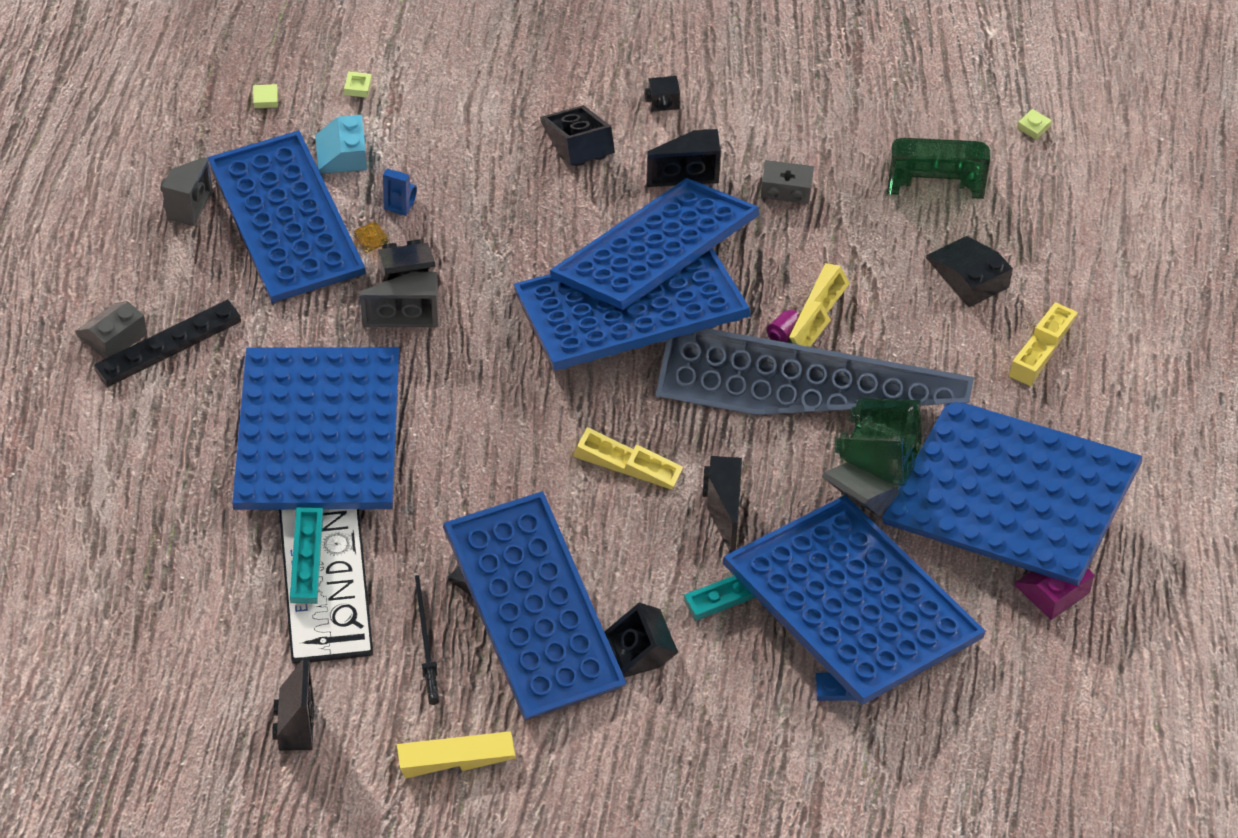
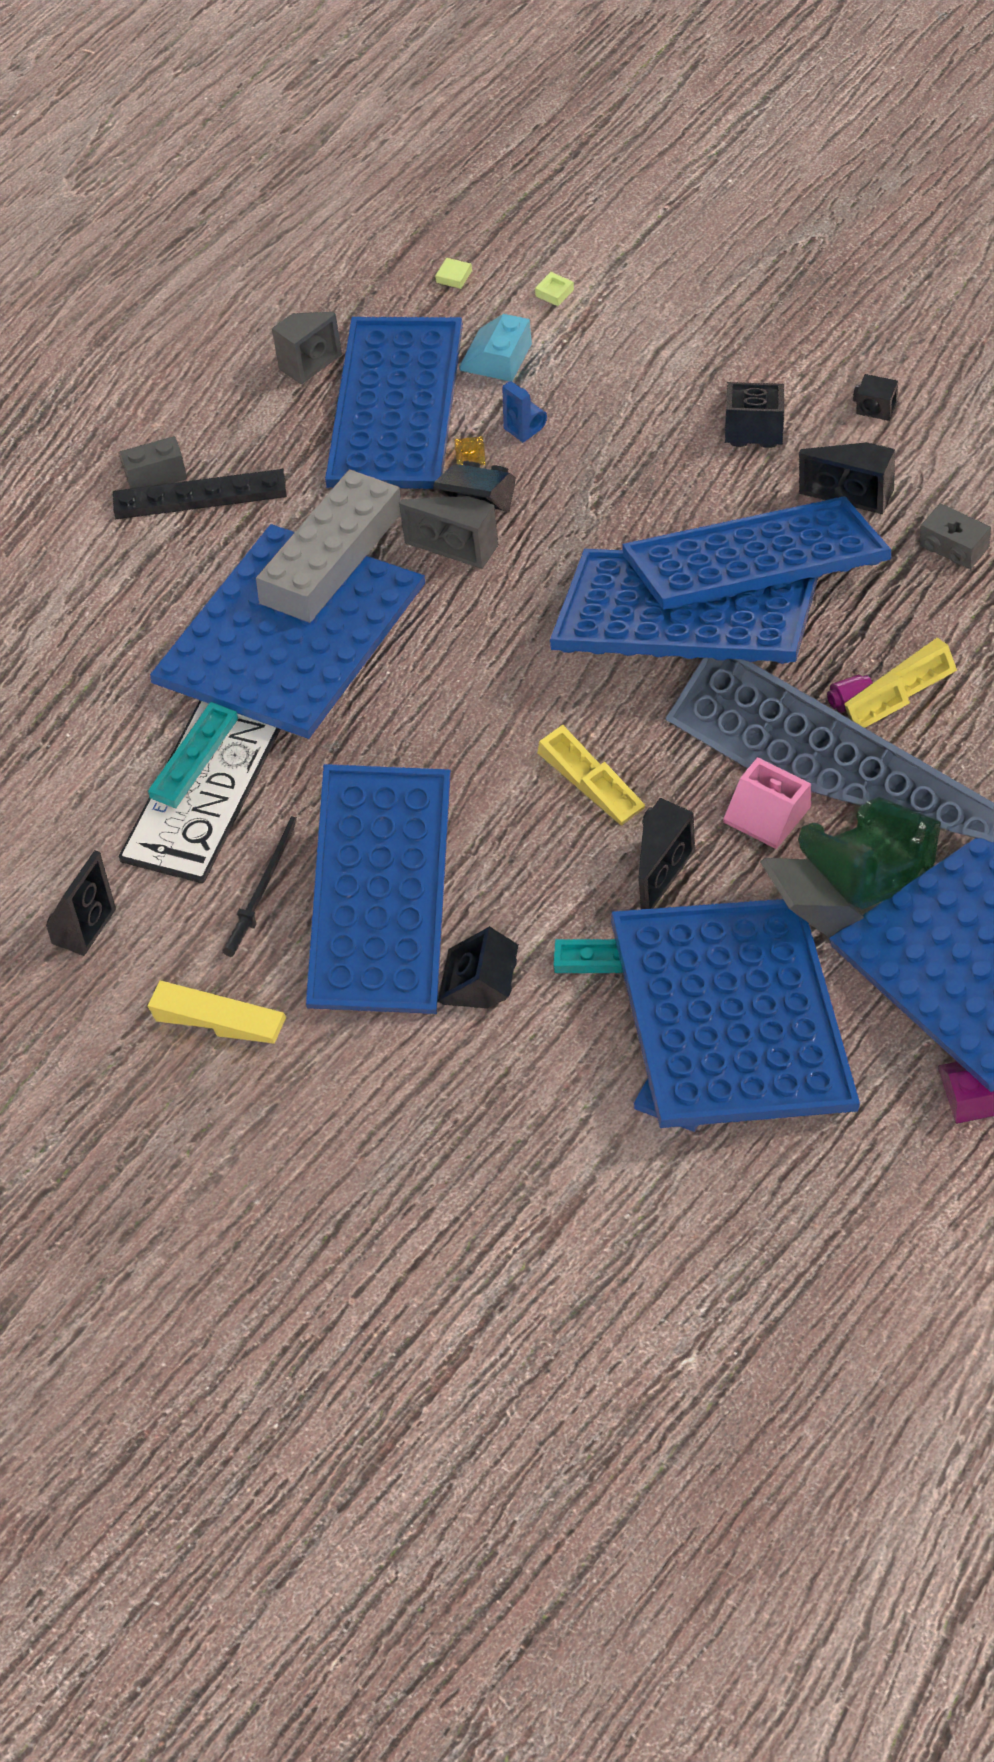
camera: 35 degrees right, 0 degrees up
(316, 349) = (328, 545): none -> light grey brick
(778, 432) = (768, 803): none -> bright pink slope

